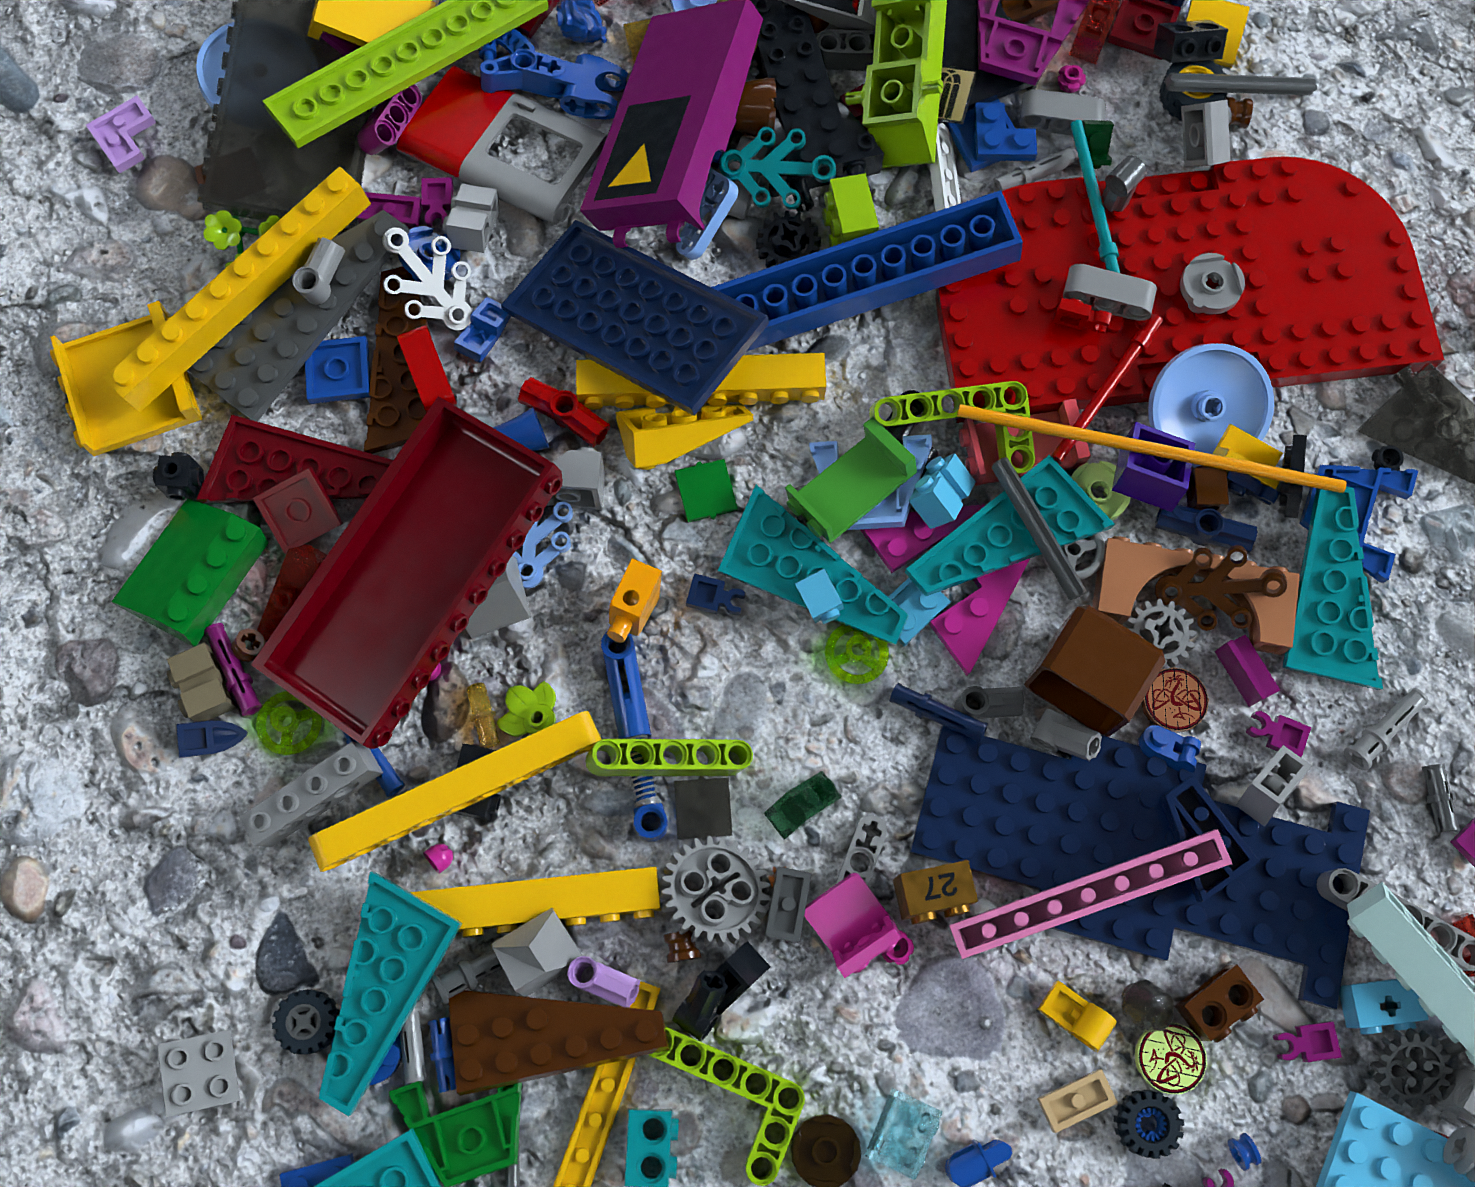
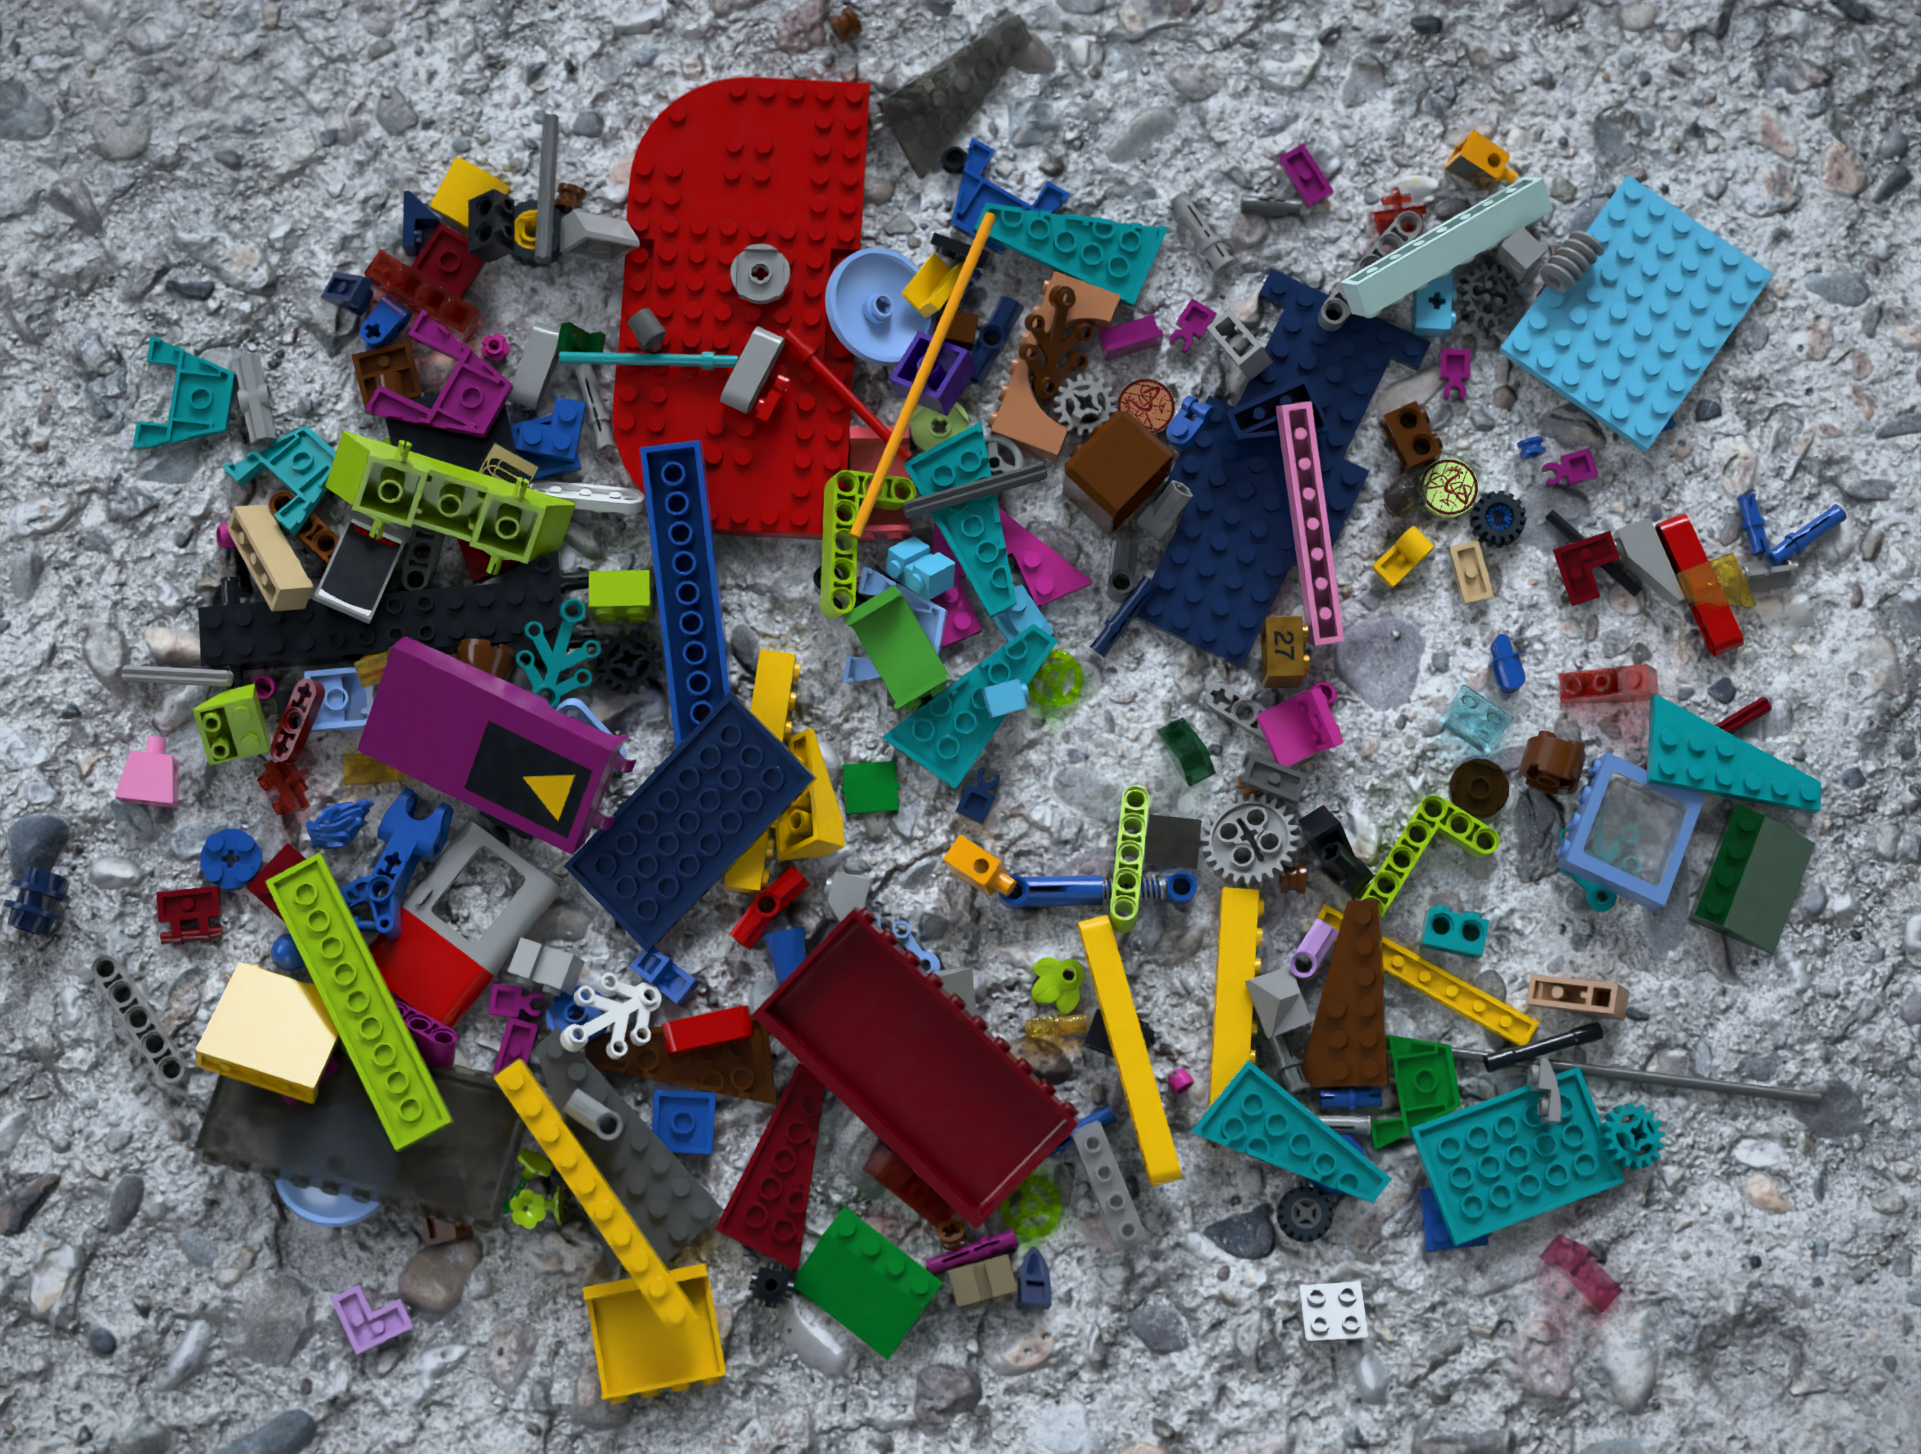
camera: 80 degrees left, 5 degrees up
(298, 510) = (829, 1172): dark red plate -> none

